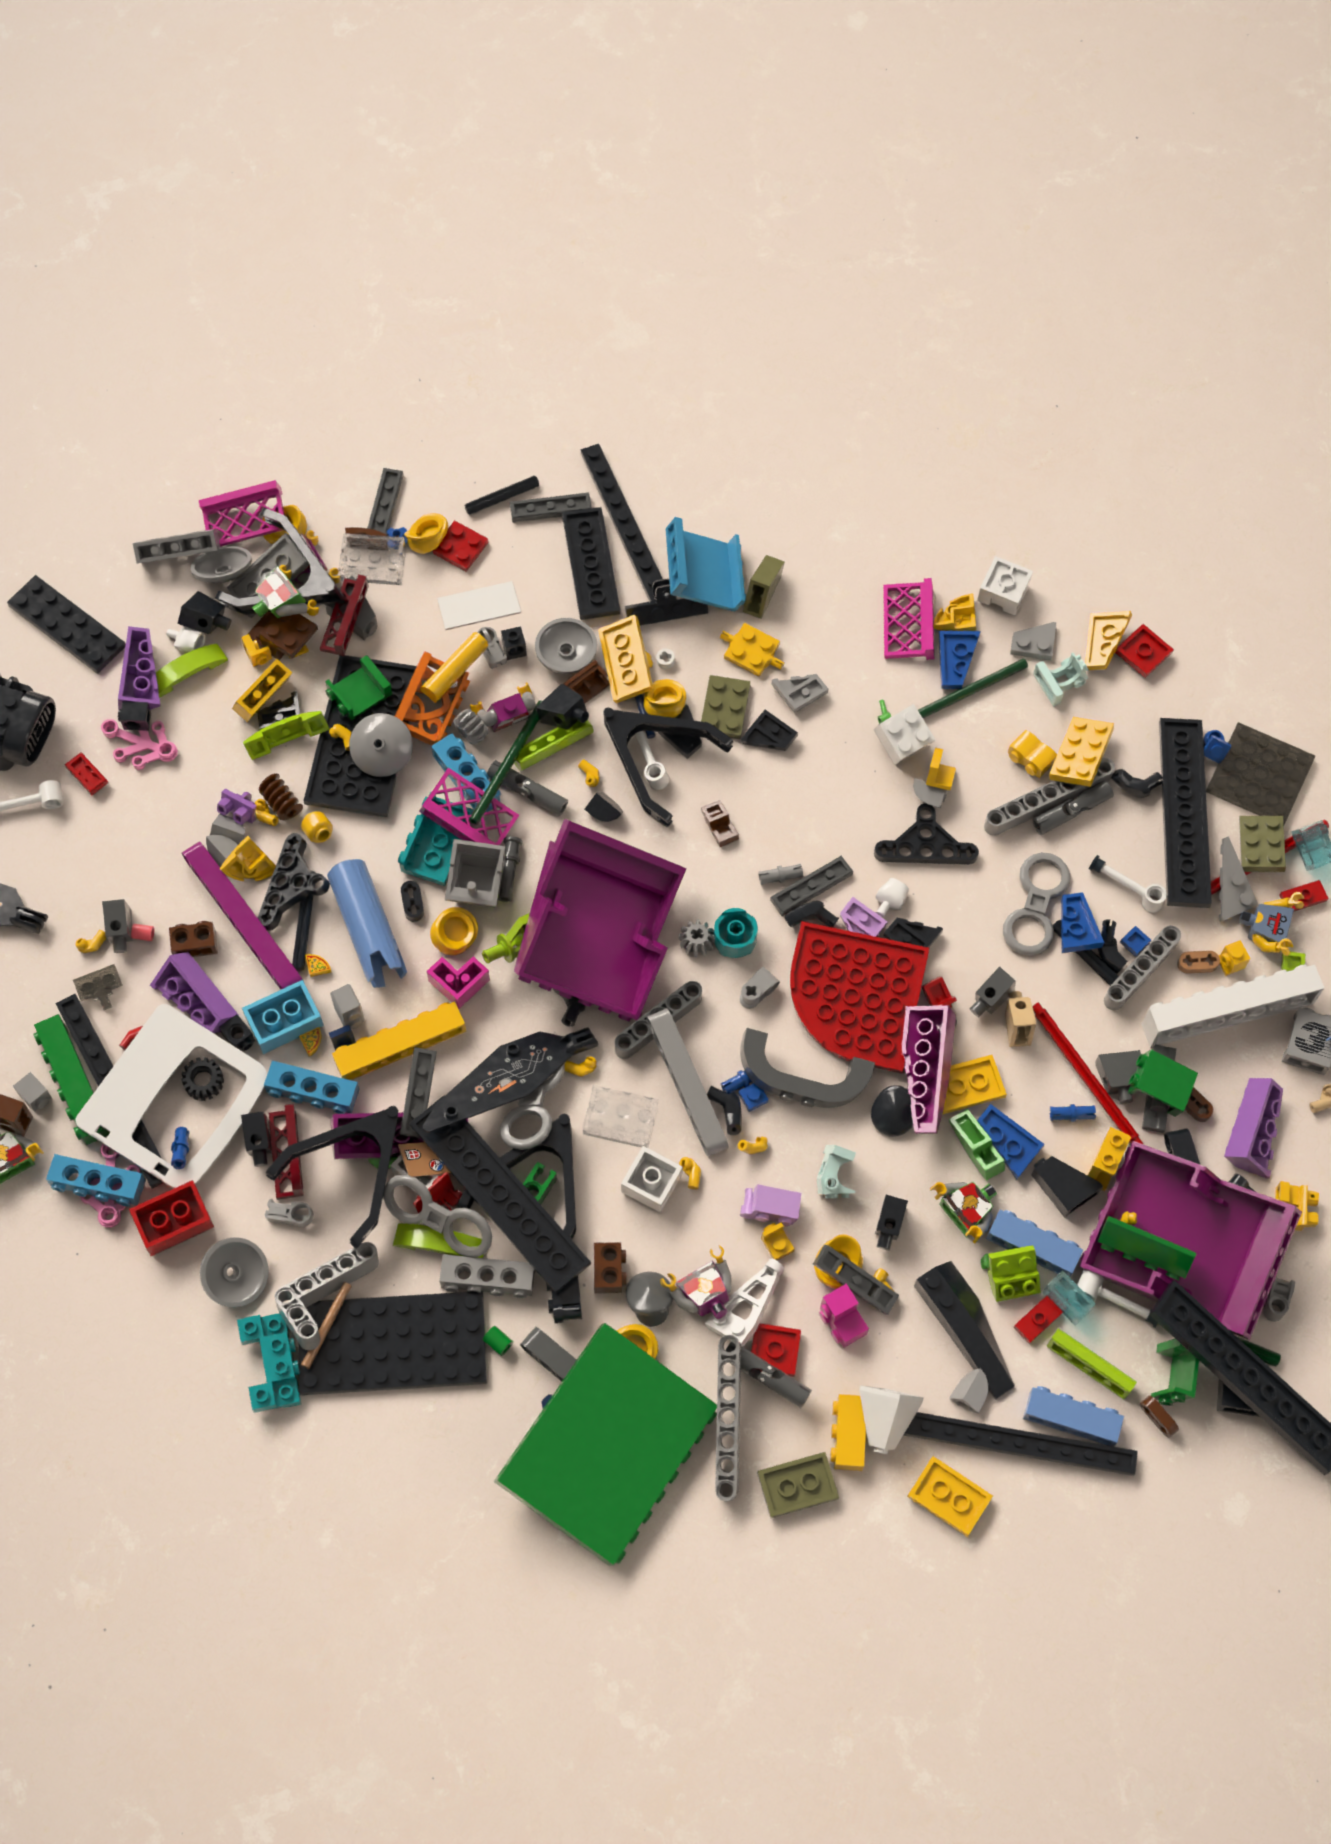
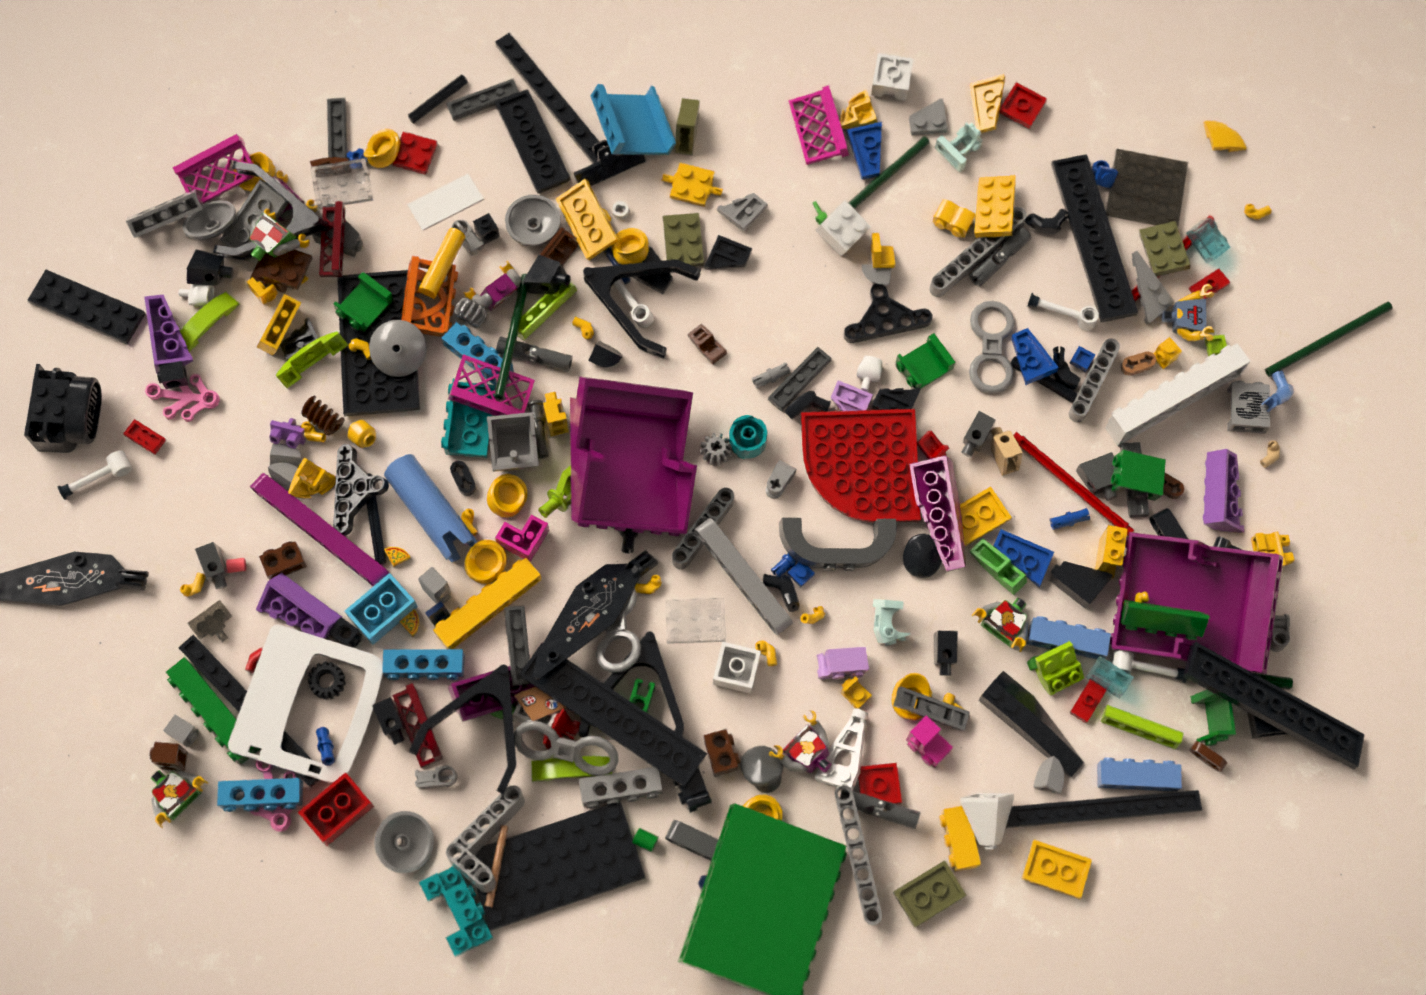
camera: 15 degrees left, 5 degrees up
(404, 945) = (467, 517): none -> yellow arm
(410, 995) = (485, 561): none -> yellow piece
(530, 857) = (555, 415): none -> yellow hips
(956, 903) = (925, 363): none -> green panel

